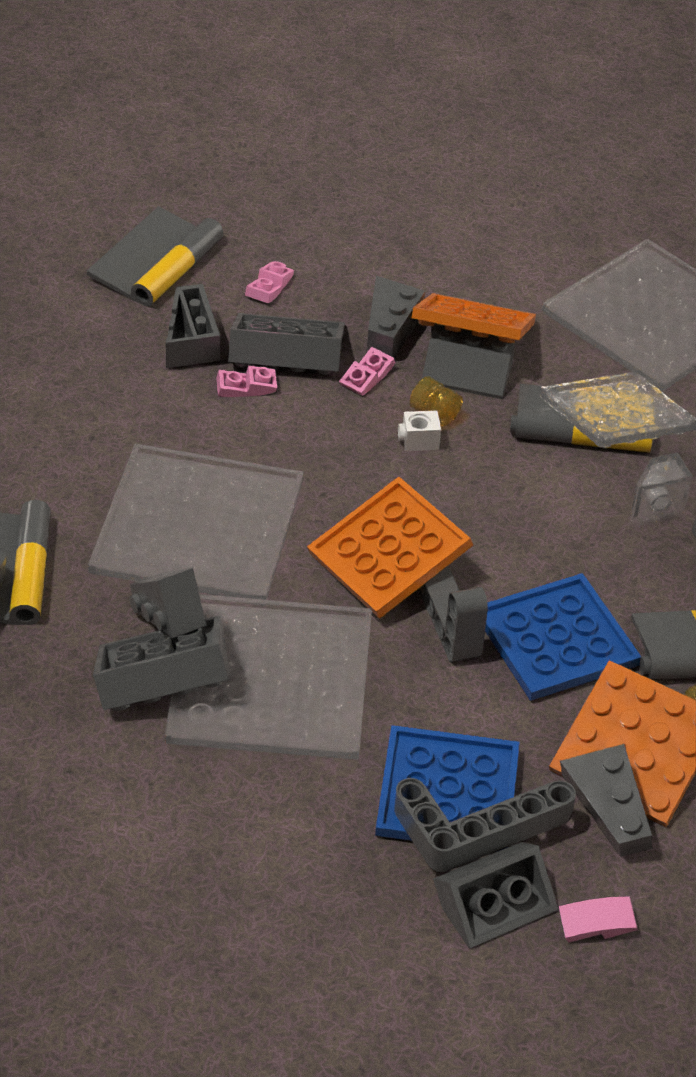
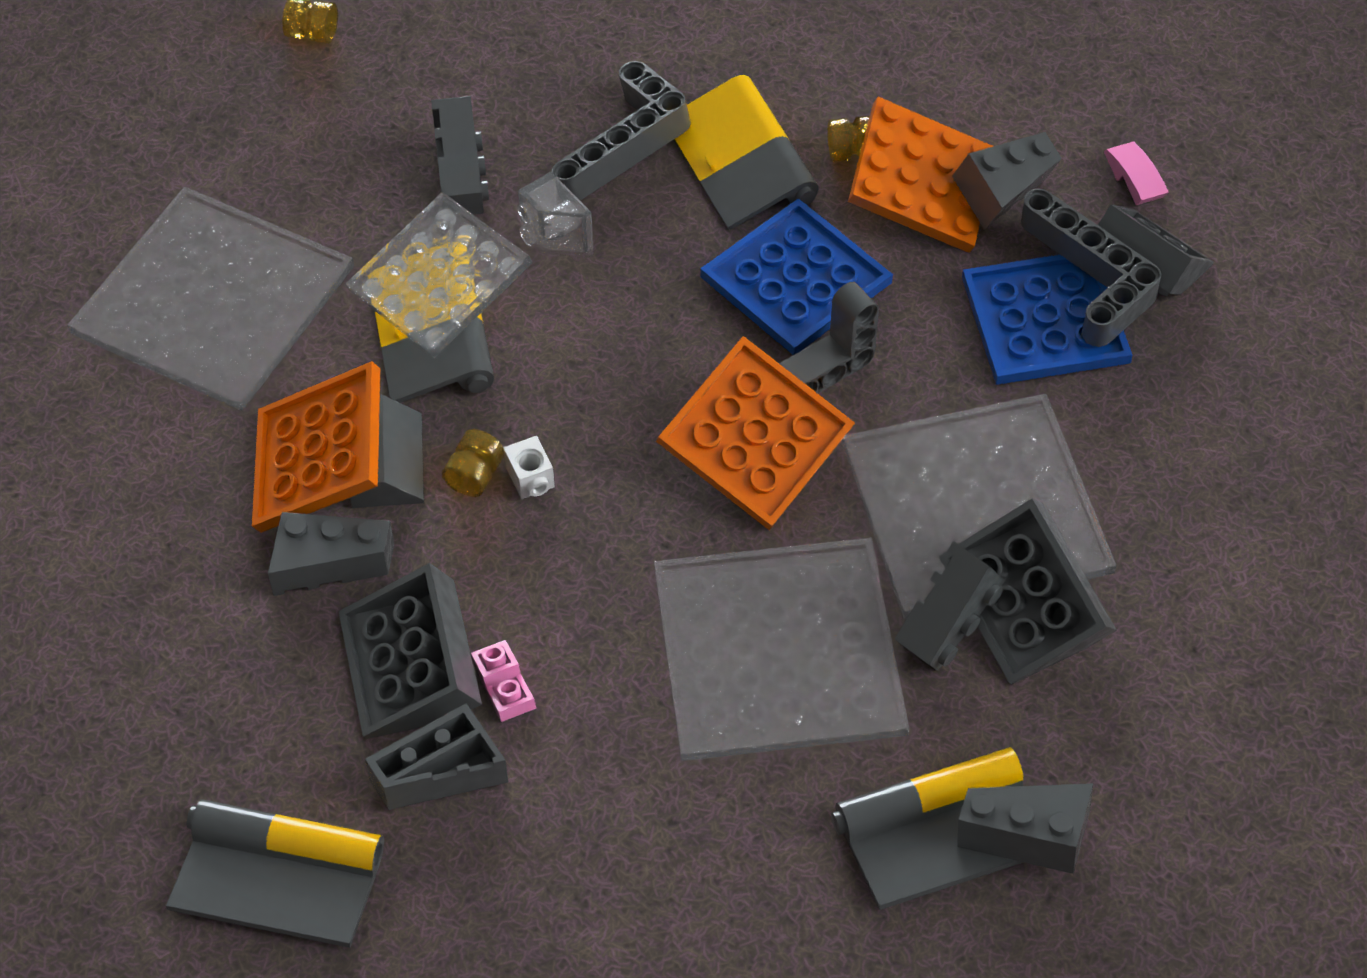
camera: 105 degrees left, 10 degrees up
(270, 282) = (282, 719): bright pink slope -> none
(371, 370) = (417, 551): bright pink slope -> none

